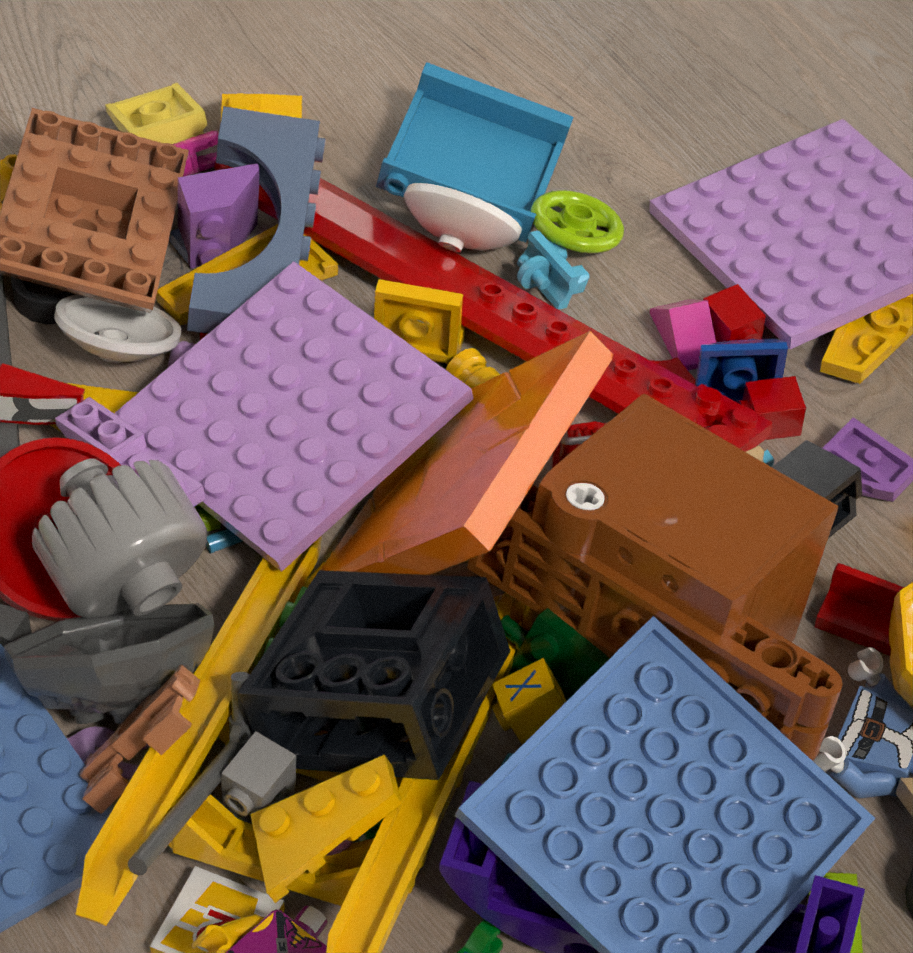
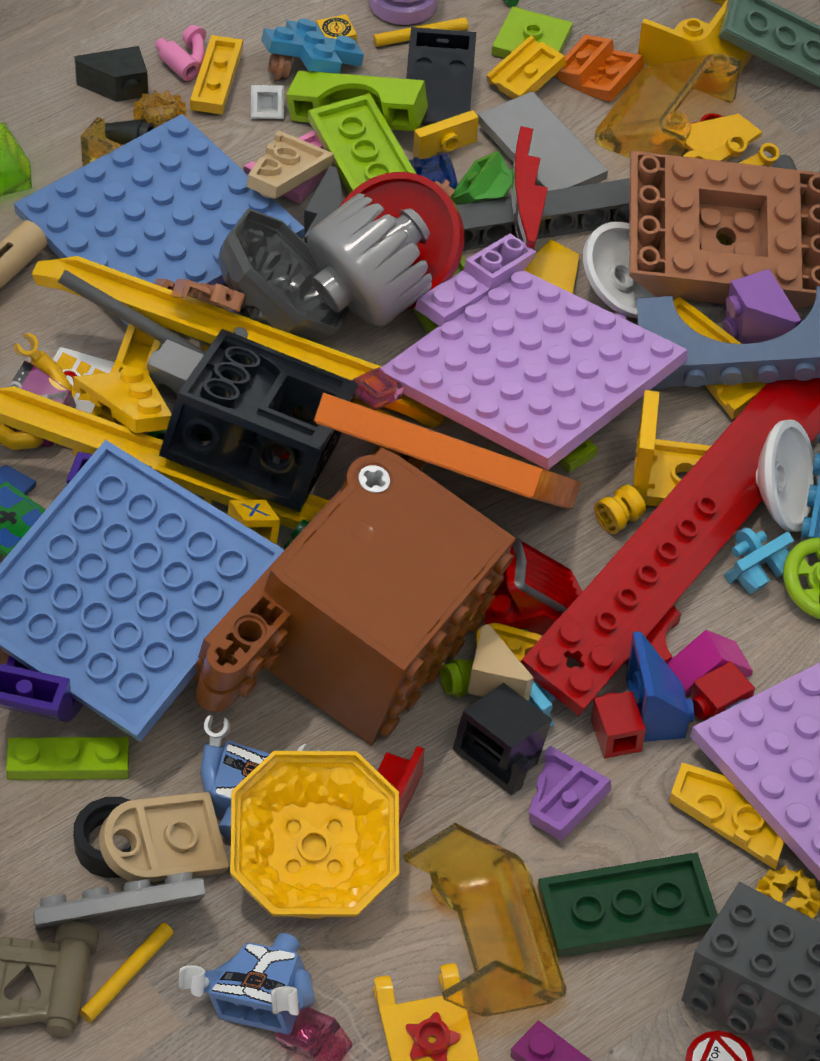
camera: 85 degrees right, 0 degrees up
(304, 562) = (378, 388): none -> clear pink tile

